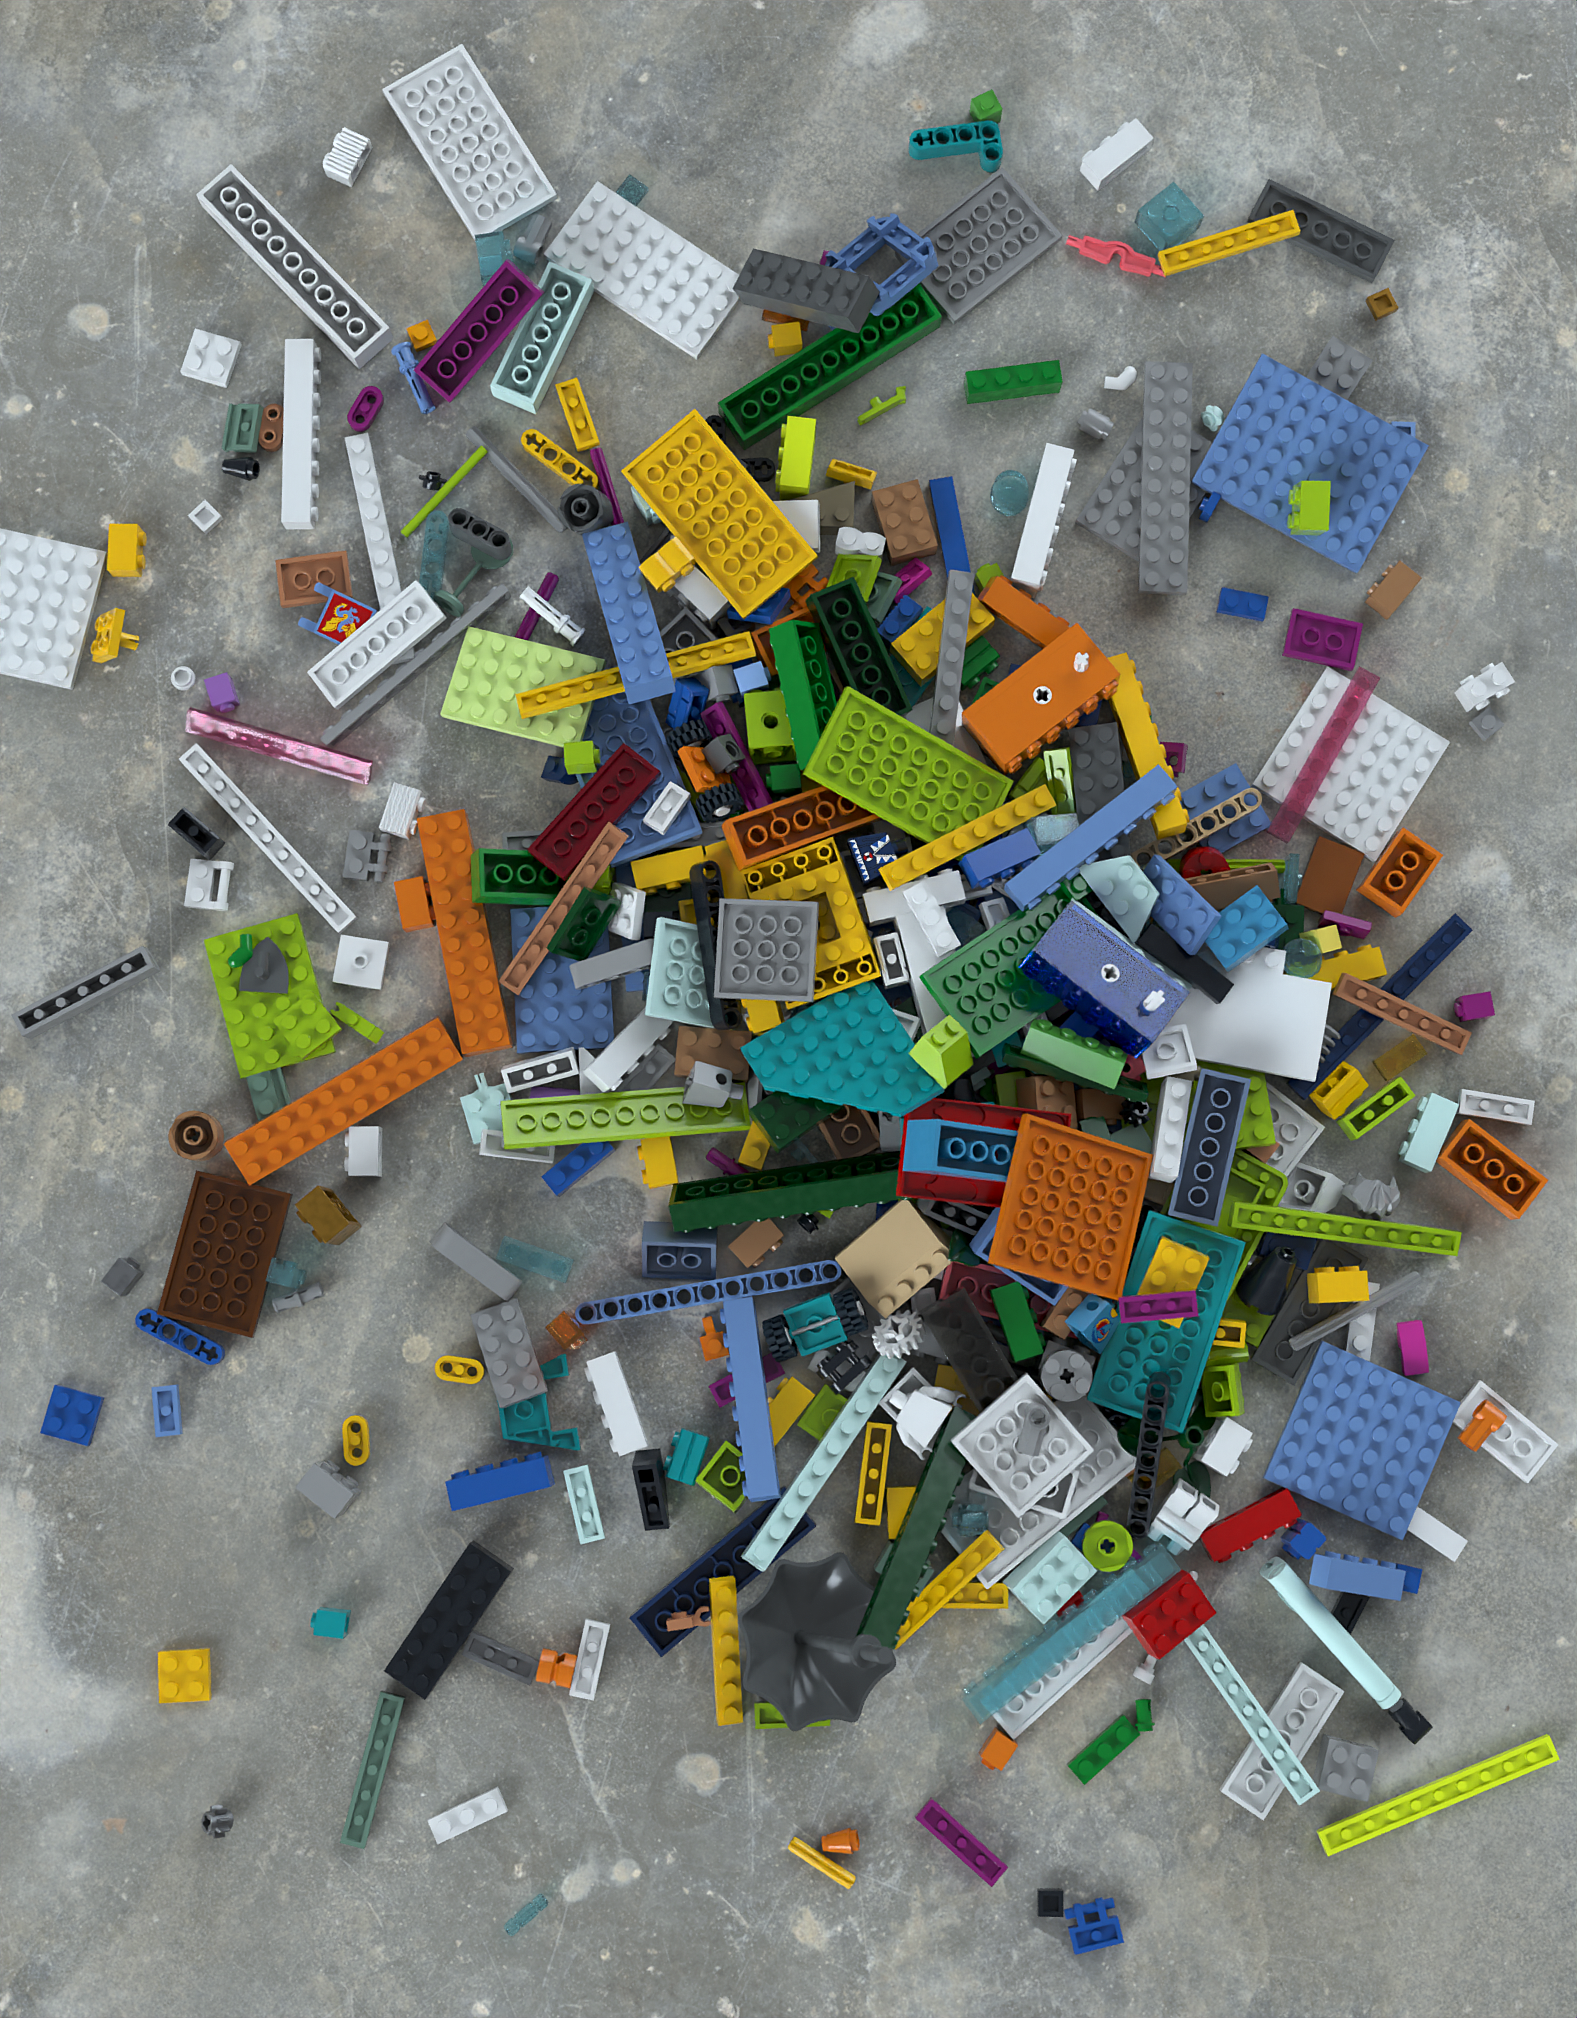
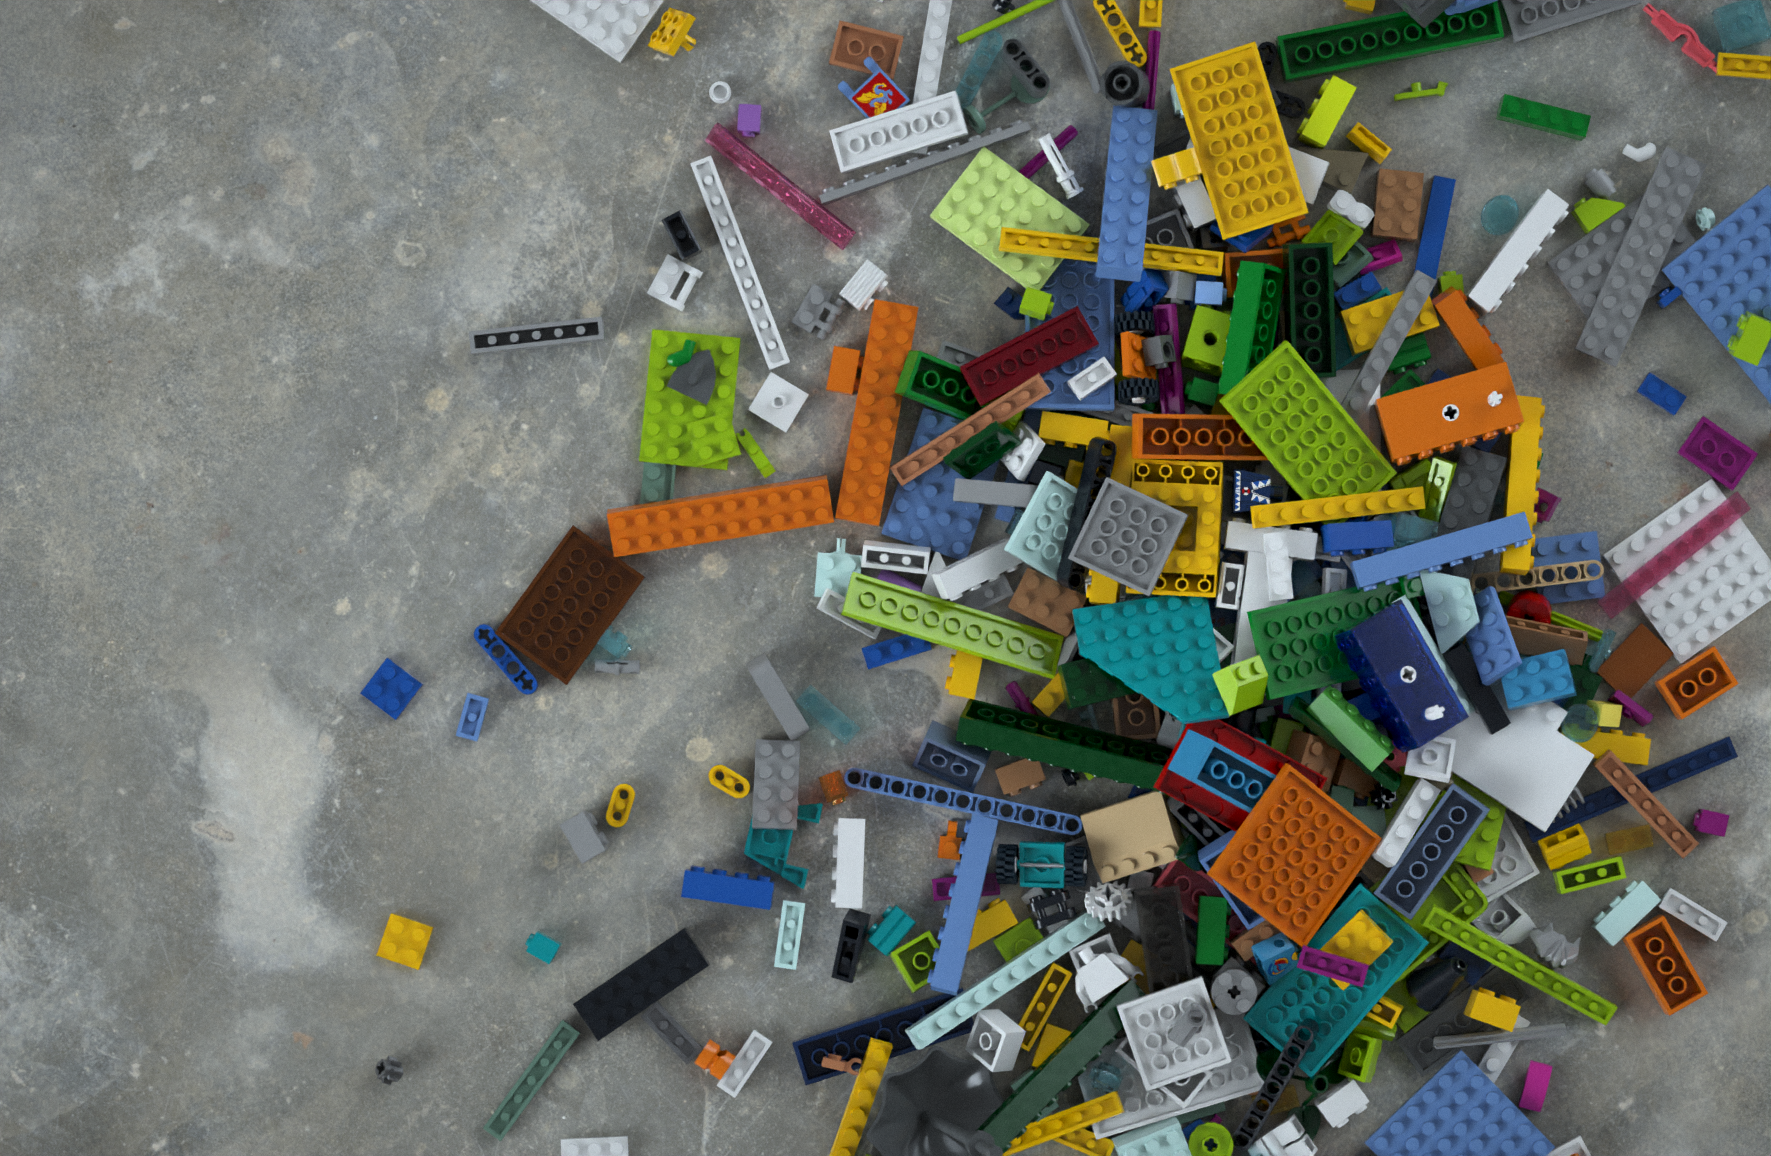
camera: 25 degrees right, 5 degrees up
(123, 1276) = (478, 589): flat silver brick -> none
(185, 1128) = (576, 486): medium nougat brick -> none
(327, 1216) = (670, 610): pearl gold brick -> none
(364, 1151) = (719, 566): white brick -> none
(710, 1086) = (1034, 629): light grey torso -> none
(840, 1528) = (995, 1040): none -> white brick
(1101, 453) = (1594, 212): none -> lime slope

